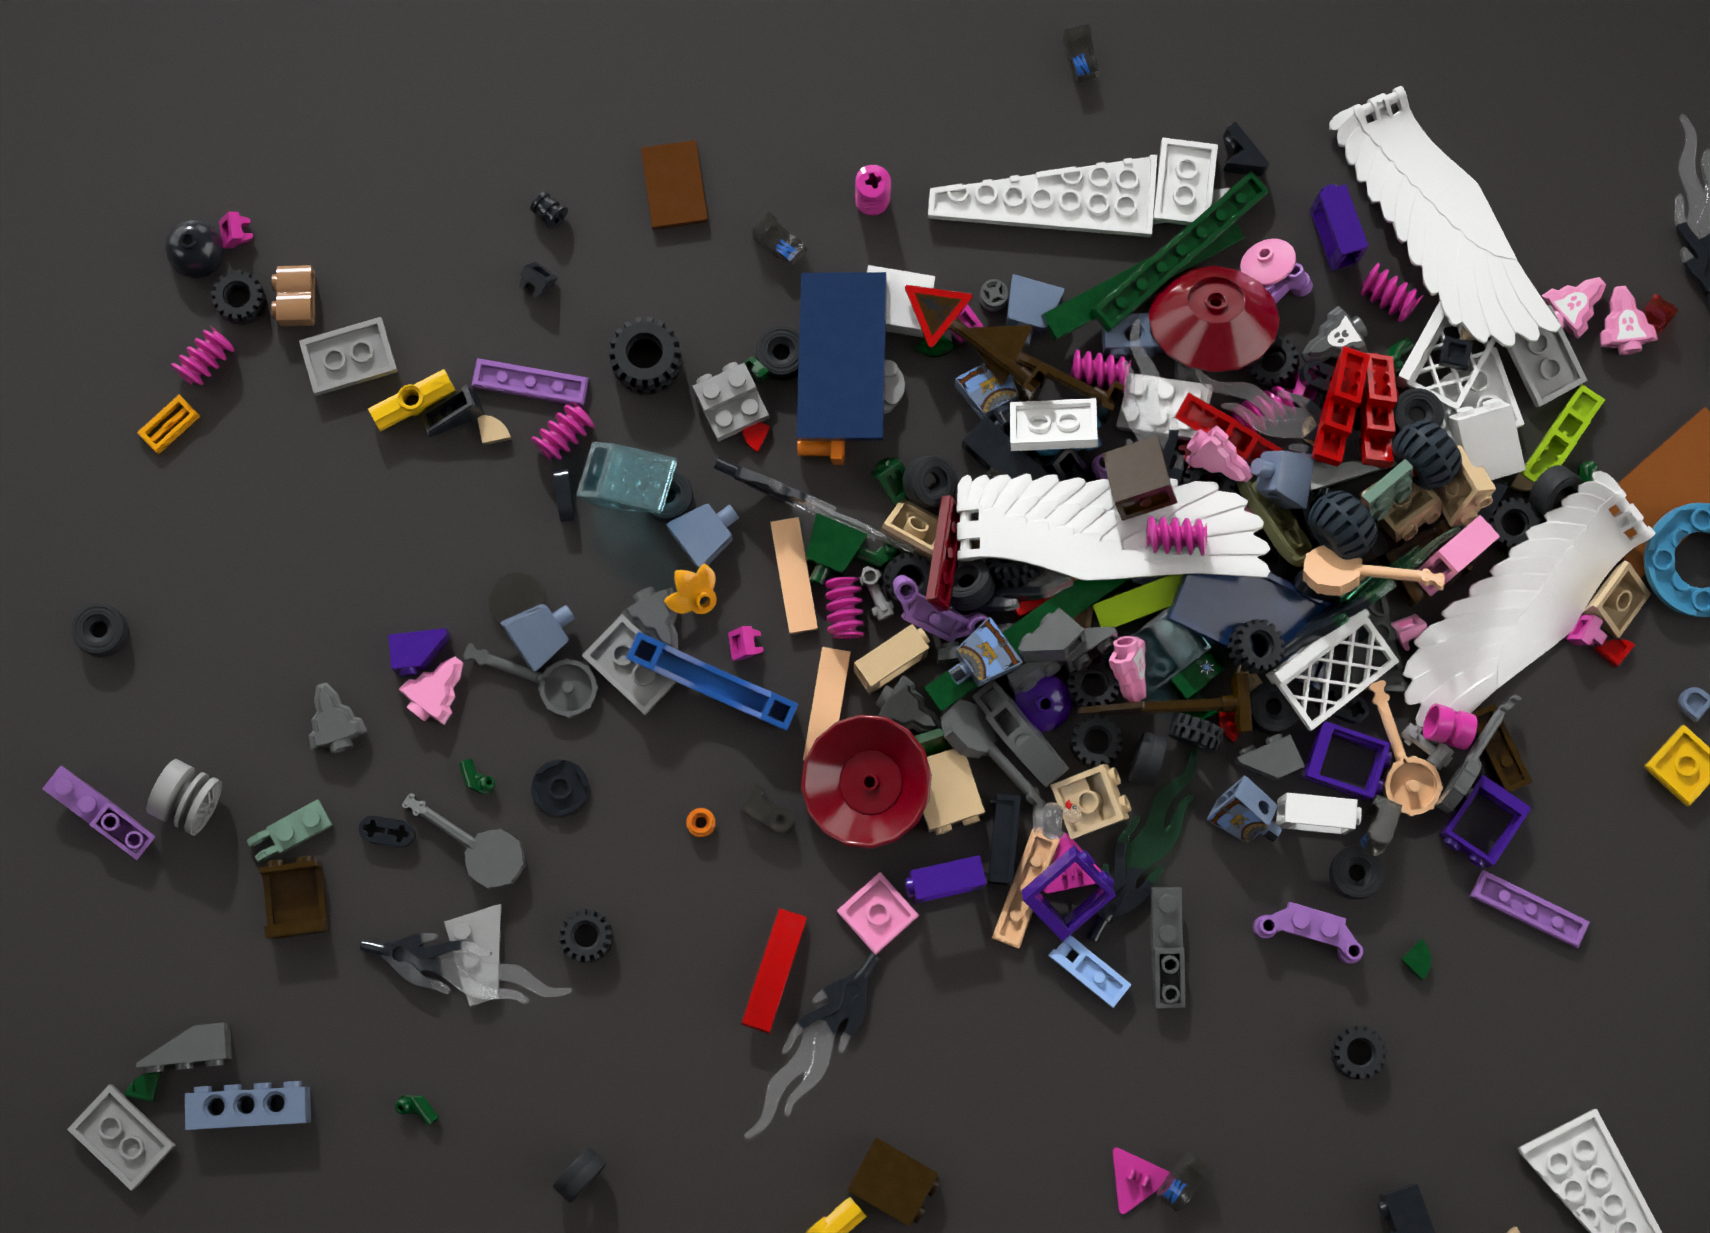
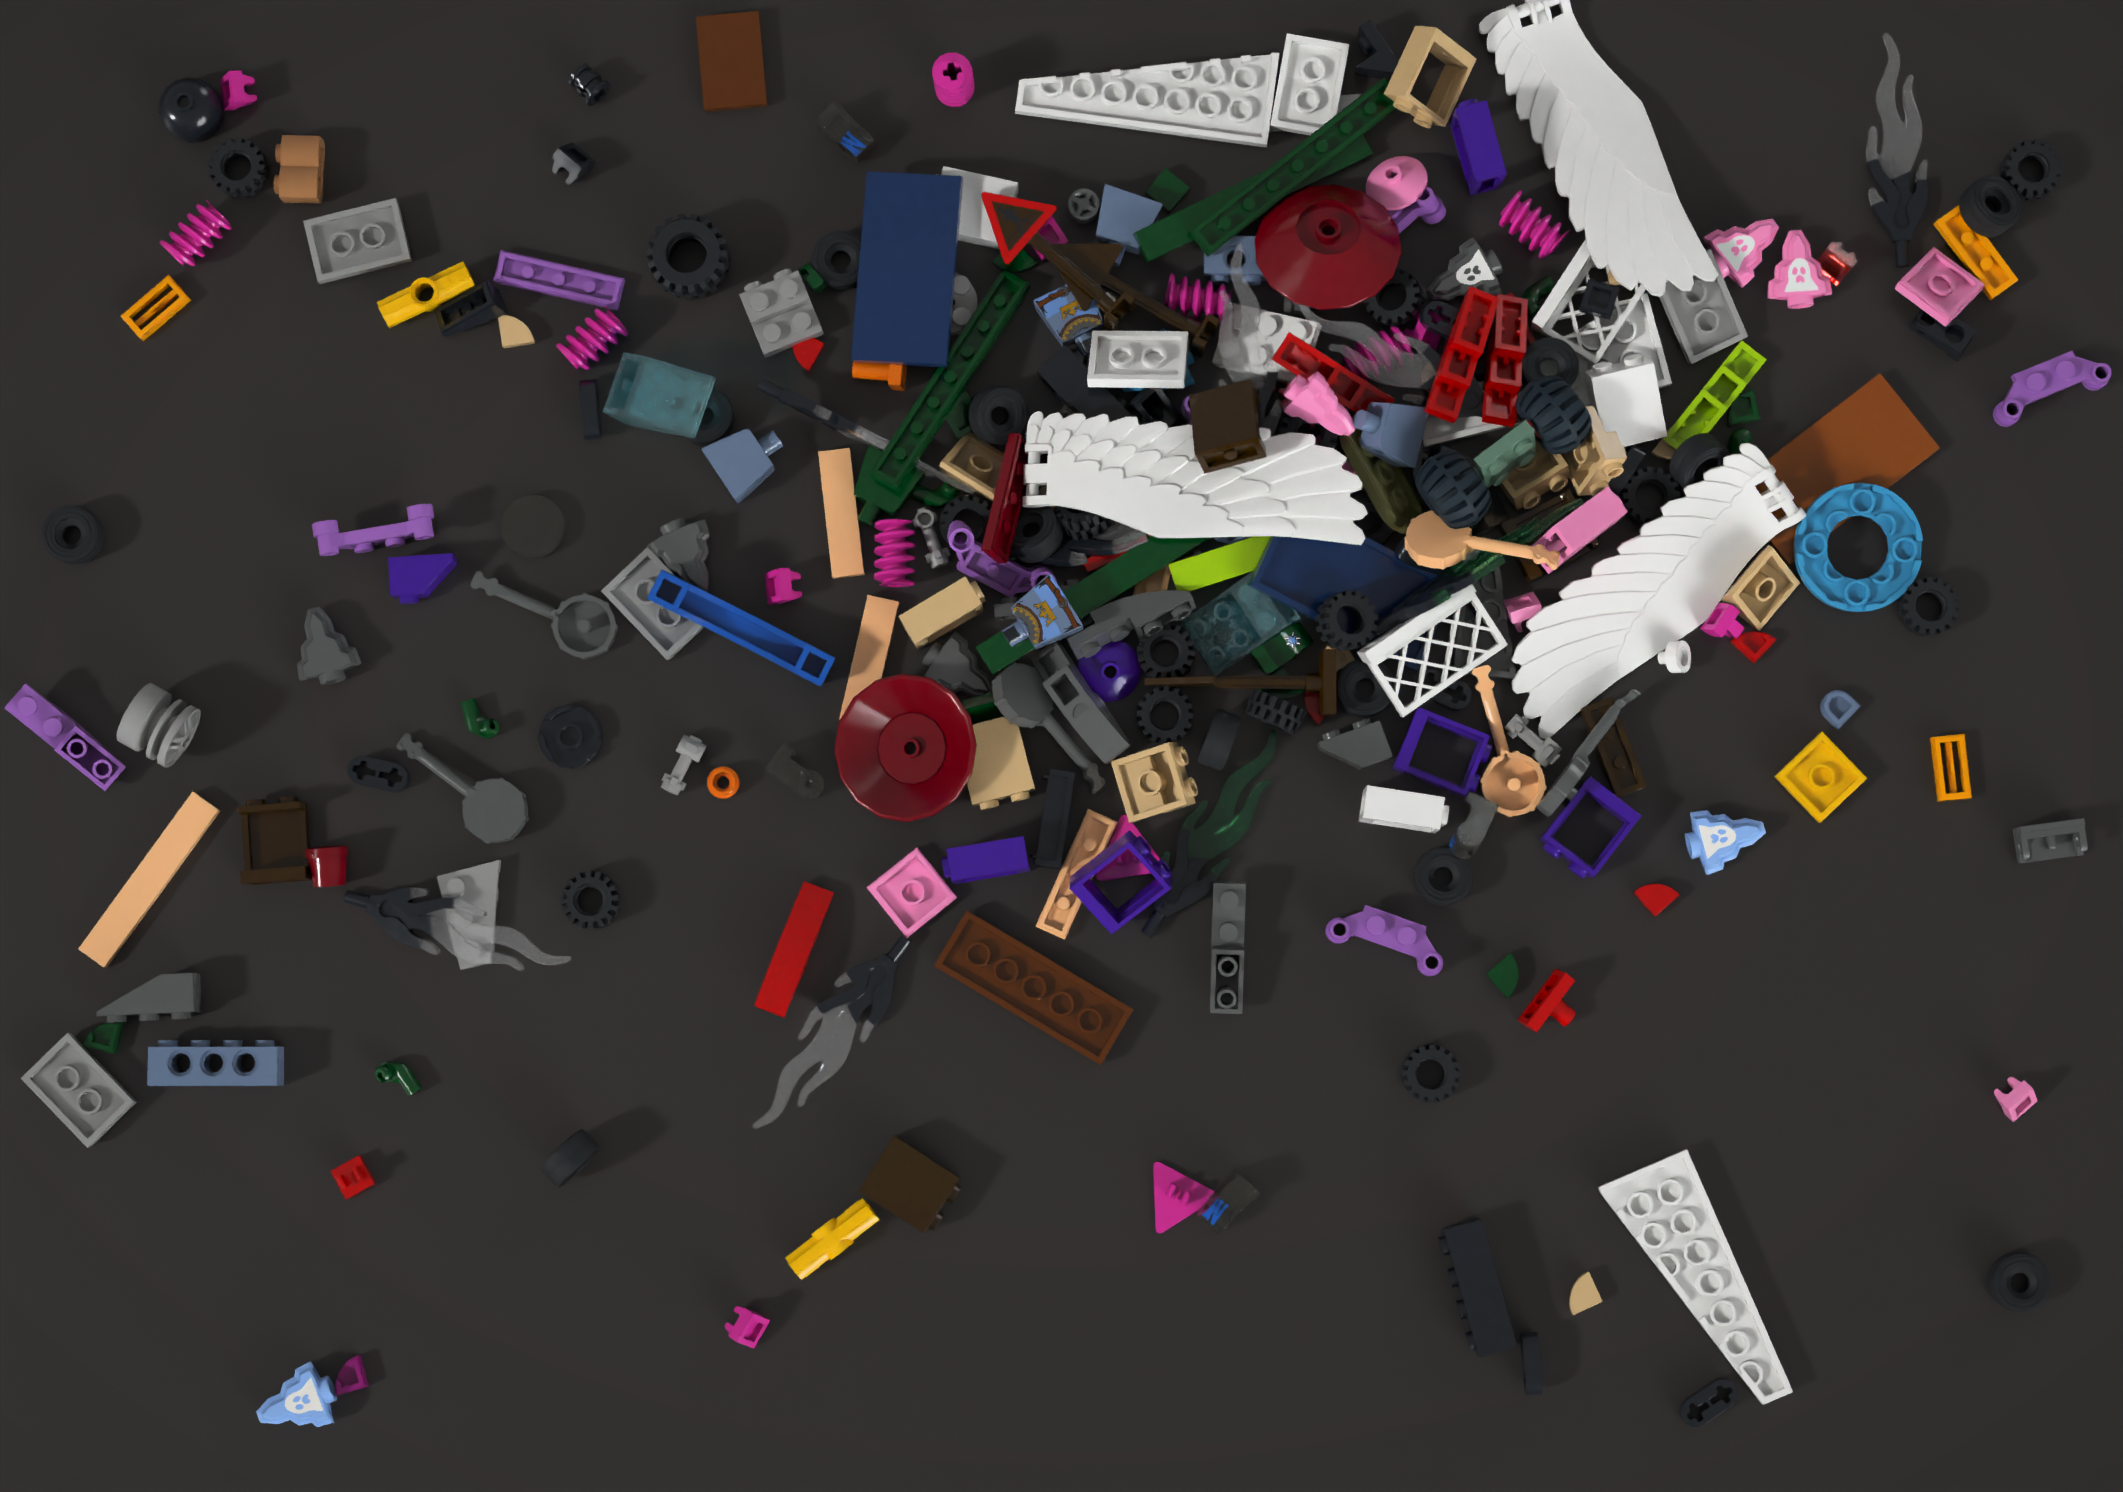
camera: 15 degrees right, 5 degrees up
(179, 939) = (149, 880): none -> light nougat tile
(292, 830) = (275, 767): sand green hinge -> none
(344, 917) = (327, 865): none -> dark red piece
(364, 621) = (363, 540): none -> medium lavender plate
(378, 1204) = (353, 1177): none -> red tile
(434, 691) = (436, 622): bright pink rock -> none
(538, 633) = (554, 563): sand blue torso -> none
(669, 794) = (690, 749): none -> light grey bar
(691, 589) = (725, 523): light orange plate -> none
(885, 454) = (950, 381): none -> dark green tile
(994, 994) = (1033, 987): none -> reddish brown plate
(1049, 818) = (1106, 799): clear animal -> none
(1054, 639) = (1120, 602): dark grey slope -> none
(1066, 277) = (1167, 190): none -> dark green tile
(1091, 971) = (1142, 969): light blue plate -> none
(1129, 667) = (1205, 635): bright pink rock -> none
(1176, 535) = (1262, 494): dark pink piece -> none
(1245, 812) = (1324, 804): sand blue torso -> none
(1308, 175) = (1449, 85): none -> tan window
(1448, 726) = (1562, 722): dark pink wheel -> none
(1461, 982) = (1549, 1003): none -> red tile
(1529, 909) = (1633, 927): medium lavender tile -> none
(1547, 881) = (1655, 897): none -> red tile
(1548, 665) = (1676, 656): none -> white tile
(1588, 444) = (1743, 409): none -> dark green tile
(1600, 825) = (1719, 838): none -> light blue rock

